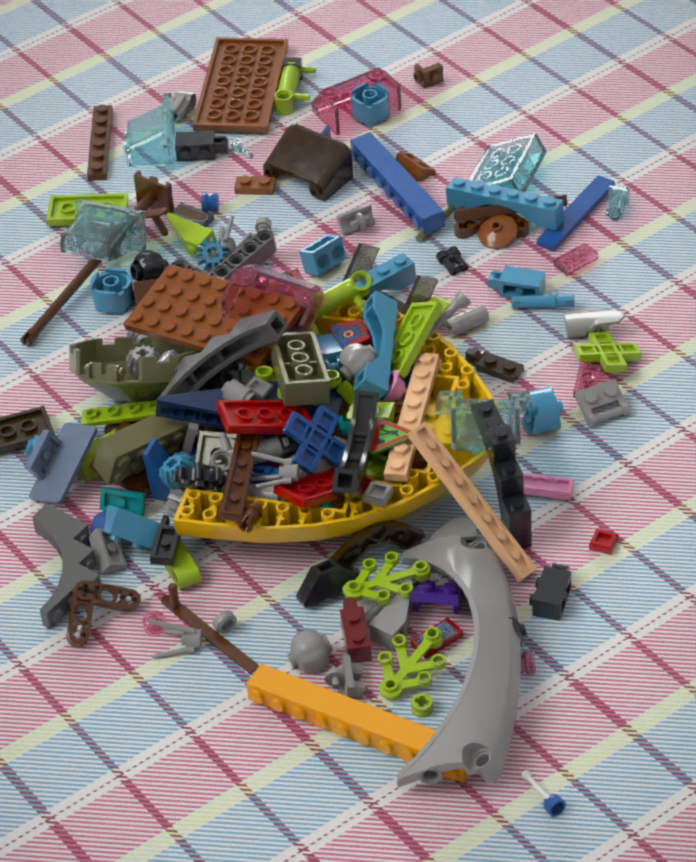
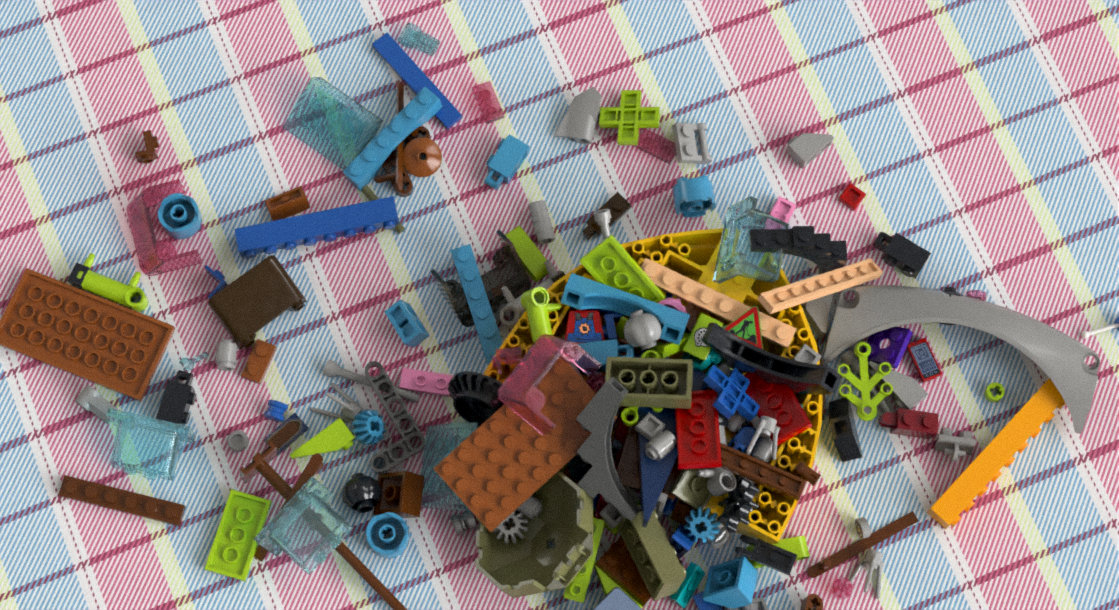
camera: 80 degrees left, 30 degrees up
(178, 191) = (238, 441): none -> light grey tile
(251, 162) = (226, 355): none -> light grey brick
(310, 651) = (917, 465): light grey plant -> none
(355, 219) = (359, 277): light grey hips -> none
(410, 665) = (955, 390): lime plant -> none
(452, 255) = (441, 212): black piece -> none
(534, 301) = (538, 143): dark azure pin -> none
(641, 491) = (808, 147): none -> light grey slope

